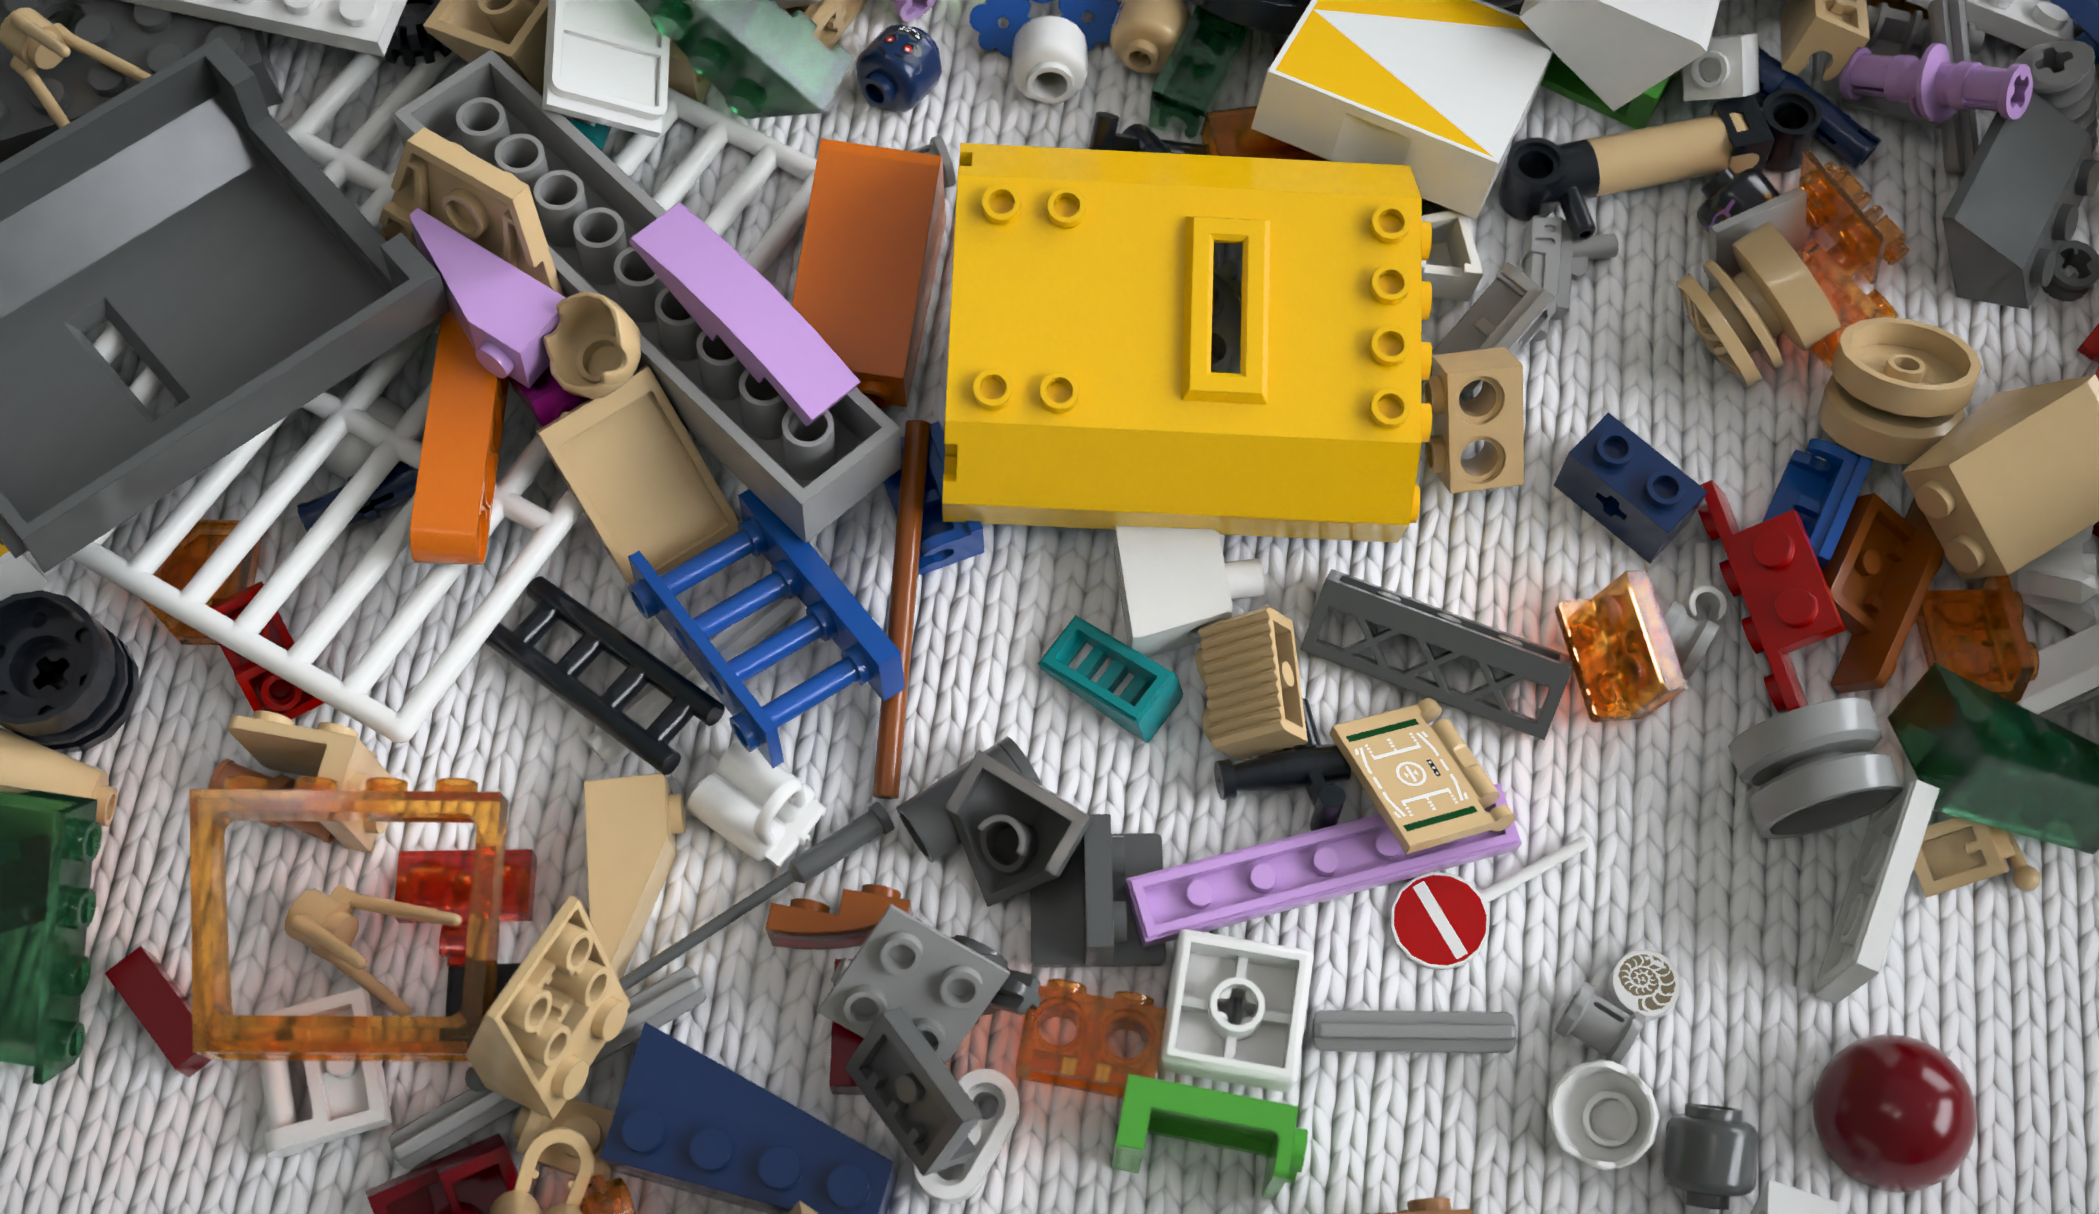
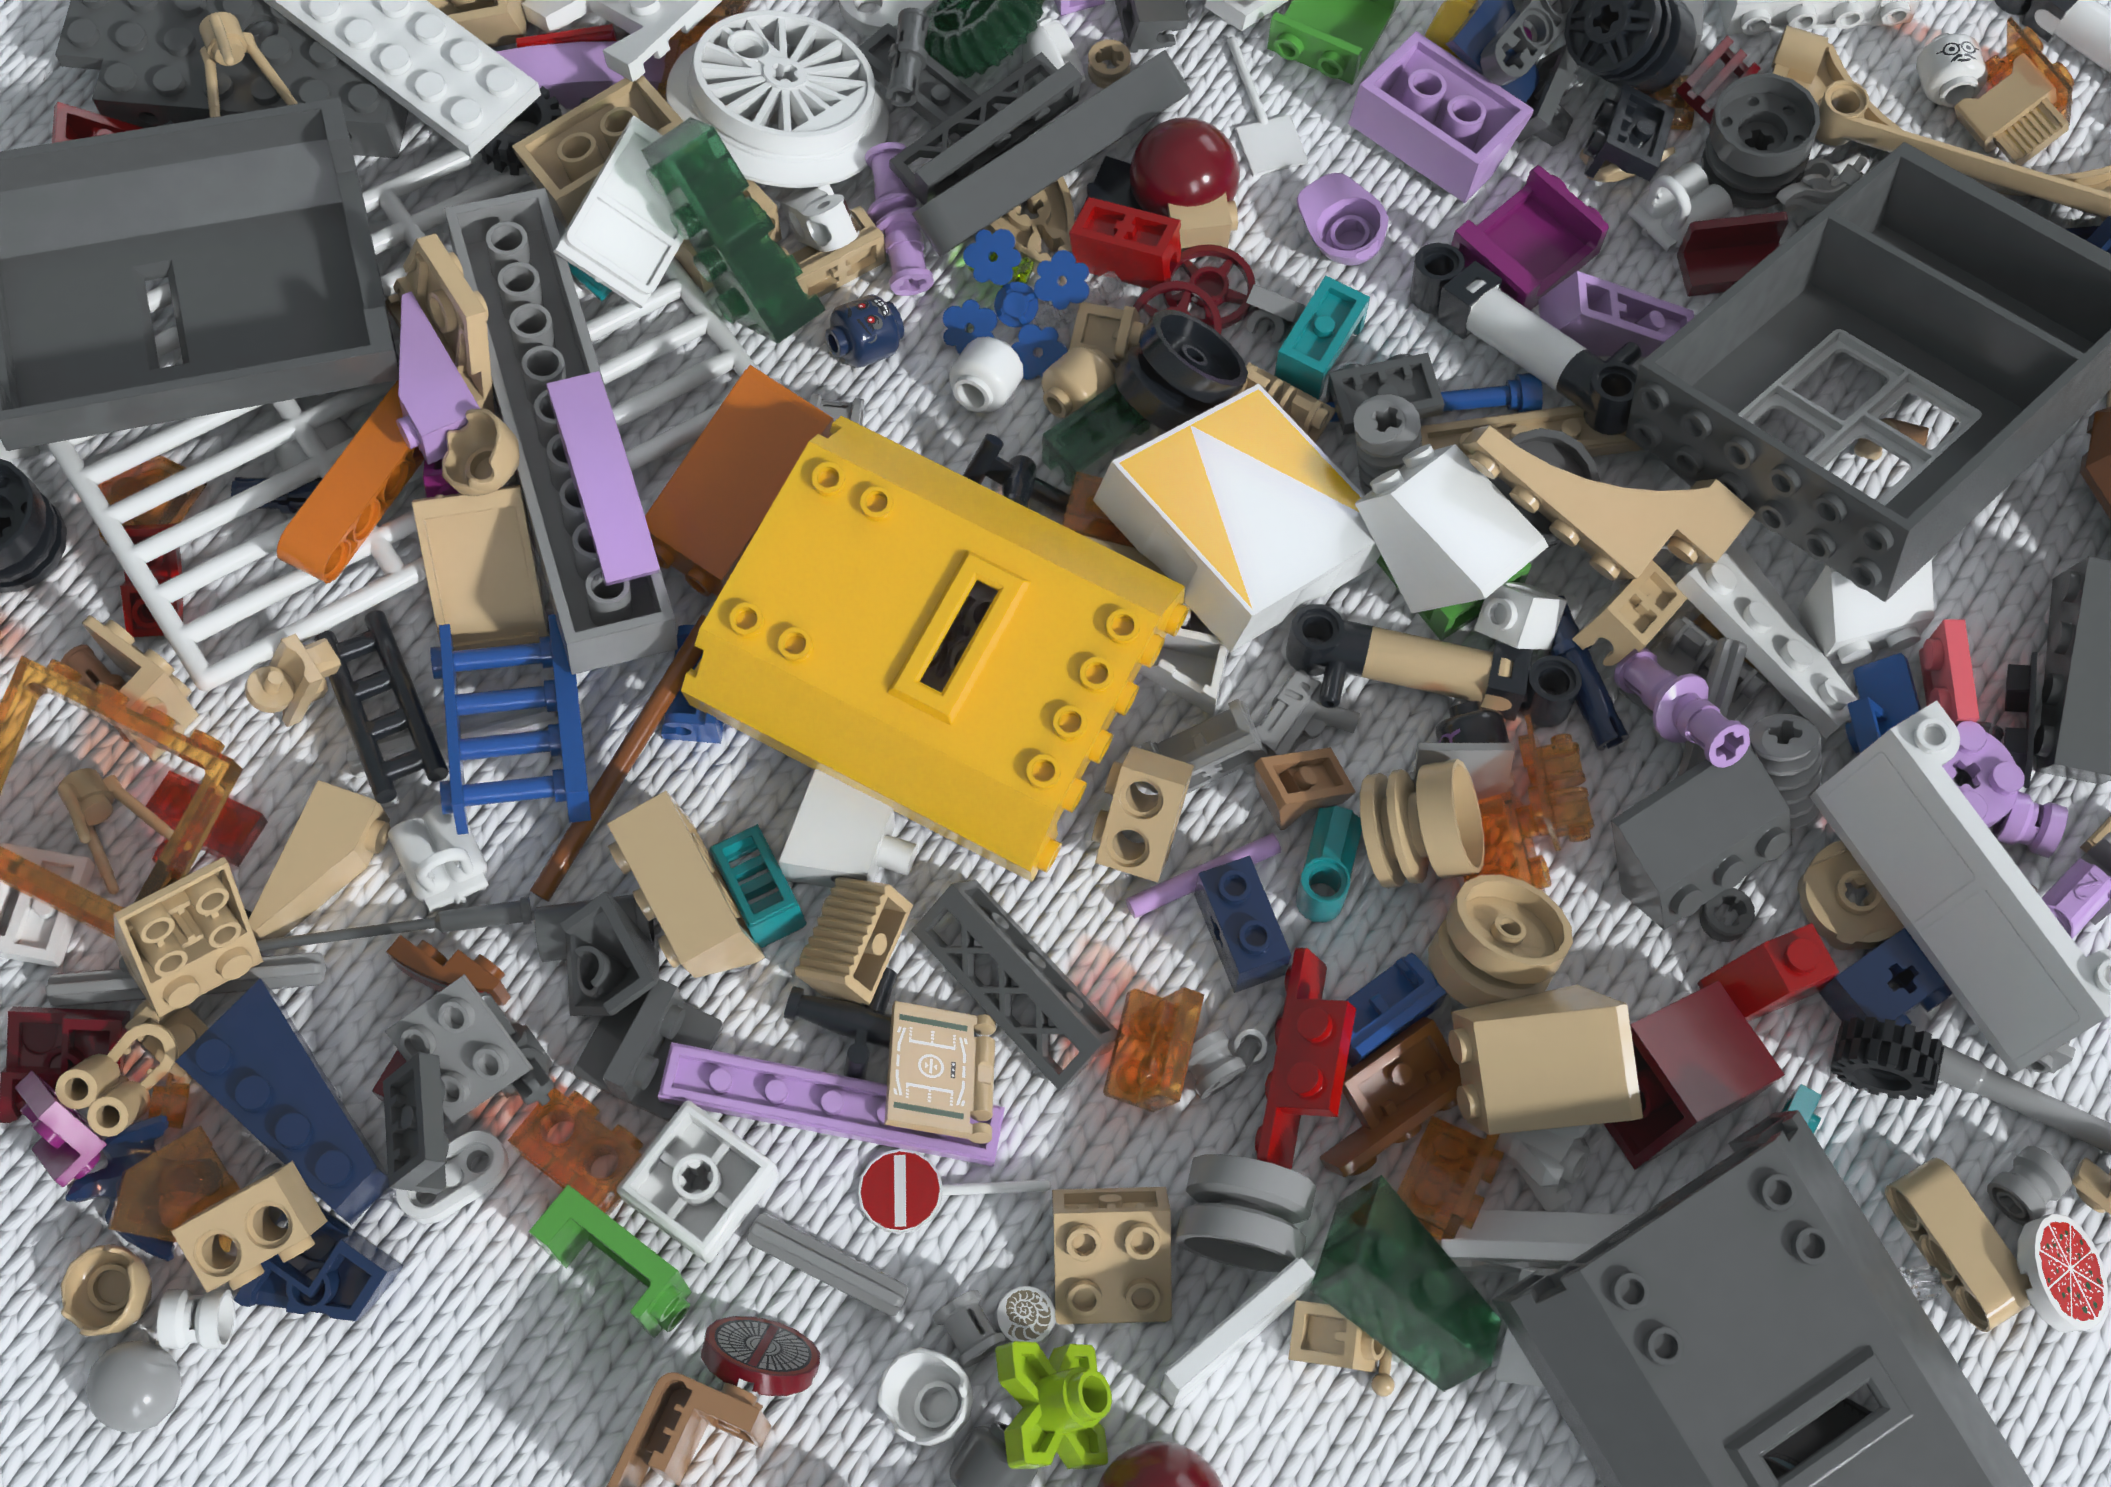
camera: 25 degrees right, 0 degrees up
(493, 685) = (292, 678): none -> tan hips
(1052, 709) = (681, 889): none -> tan slope
(1410, 1154) = (762, 1353): none -> tile
(1549, 466) = (1186, 882): none -> lavender bar
(1600, 329) = (1301, 782): none -> medium nougat slope
(1675, 390) = (1329, 862): none -> teal piece
(1696, 875) = (1112, 1255): none -> tan bracket
(1743, 1053) = (1060, 1404): none -> lime plant

